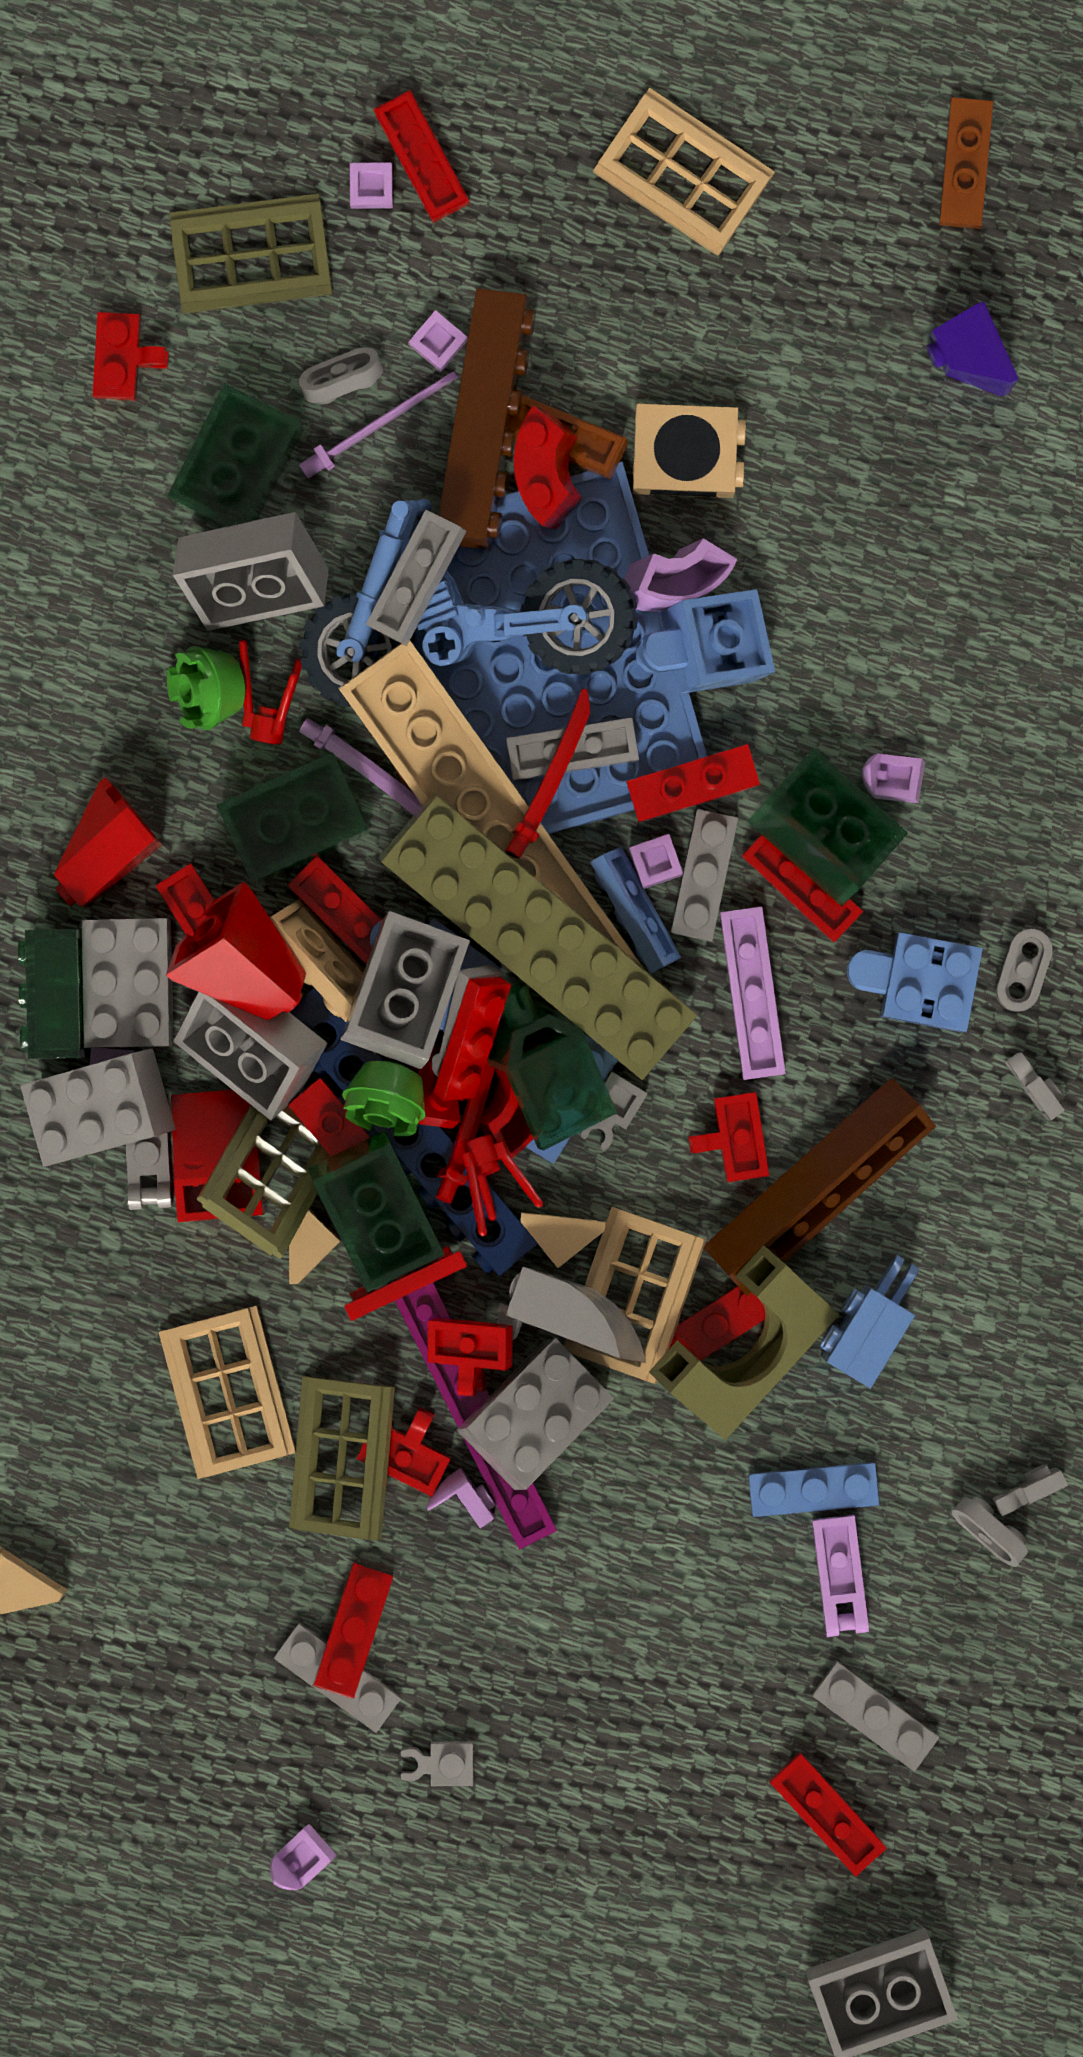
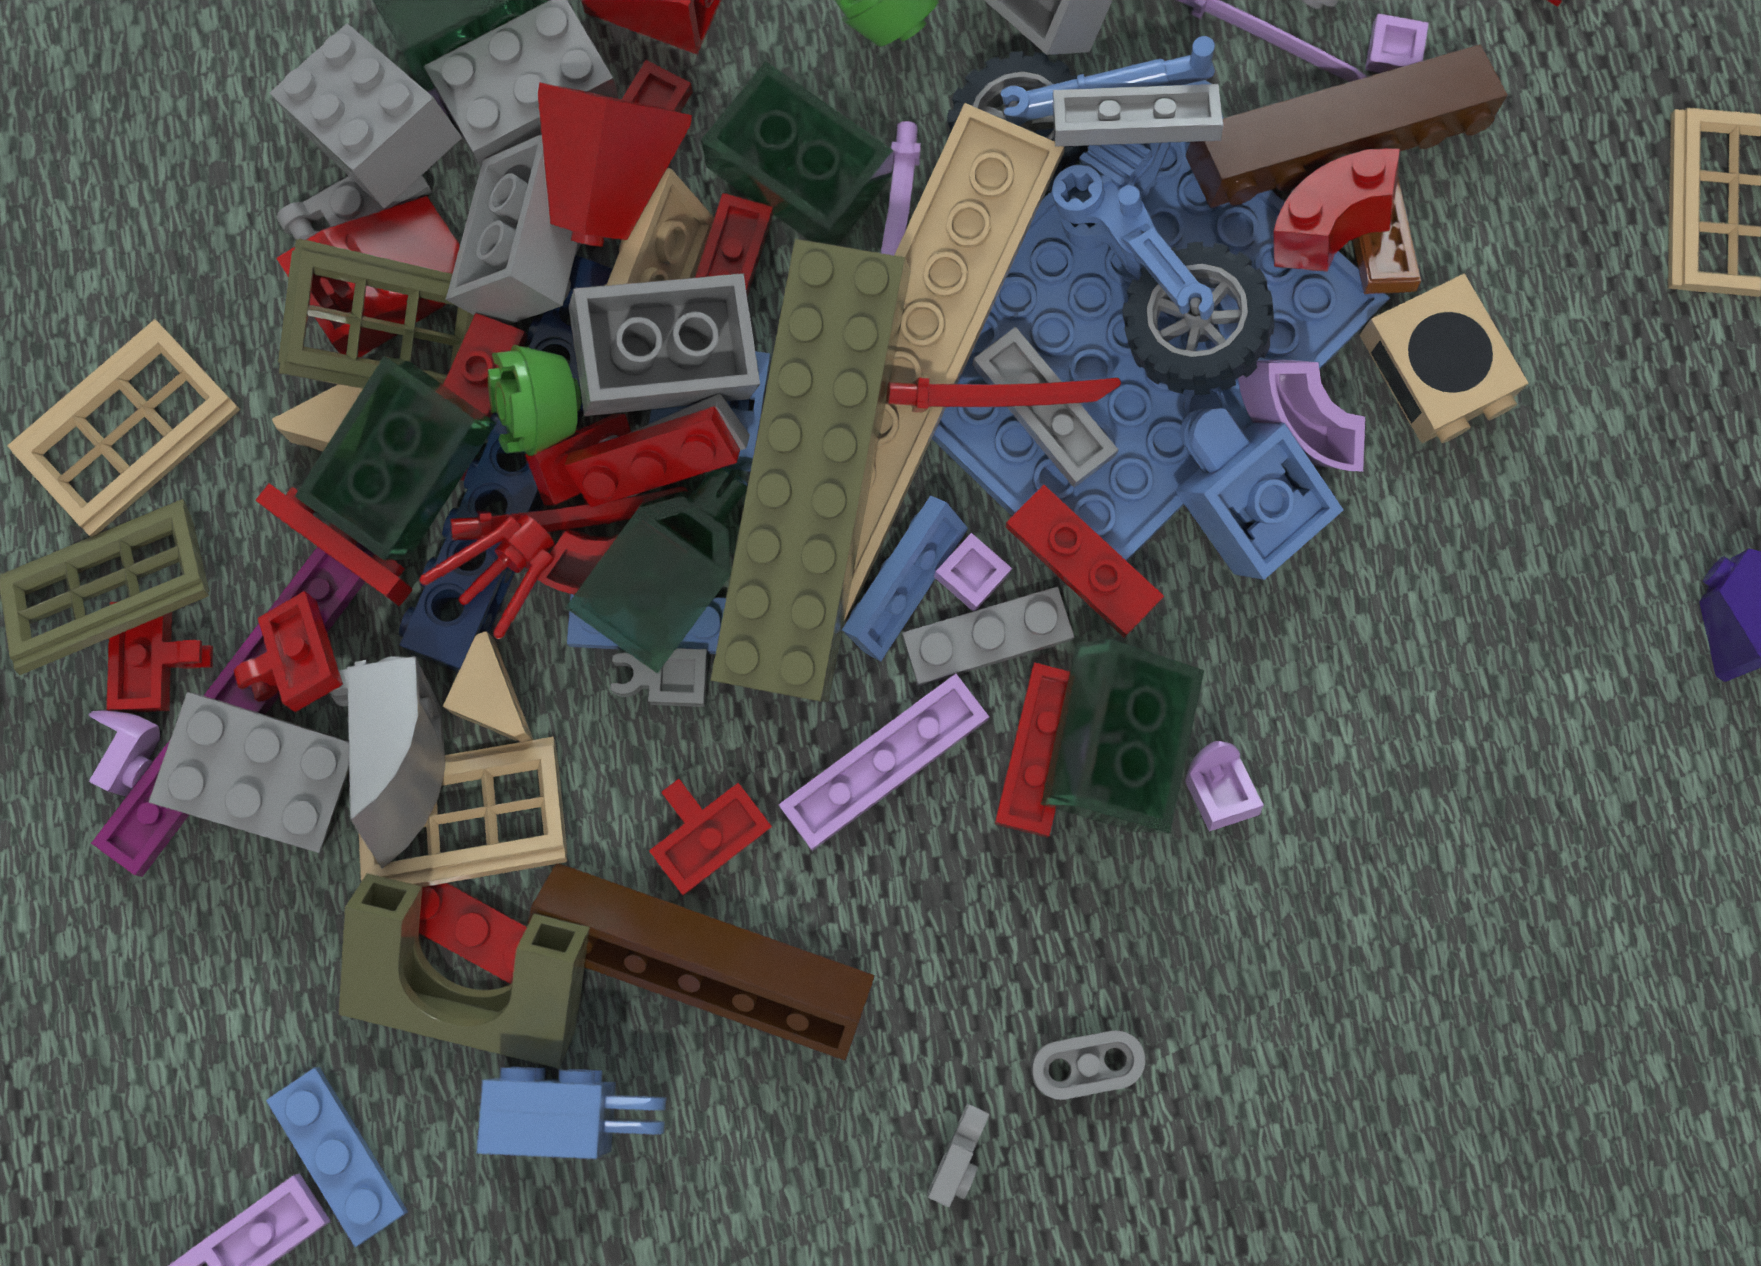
camera: 60 degrees right, 10 degrees down
(269, 722) = (890, 86): red plant -> none
(920, 980) = (1010, 944): medium blue brick -> none

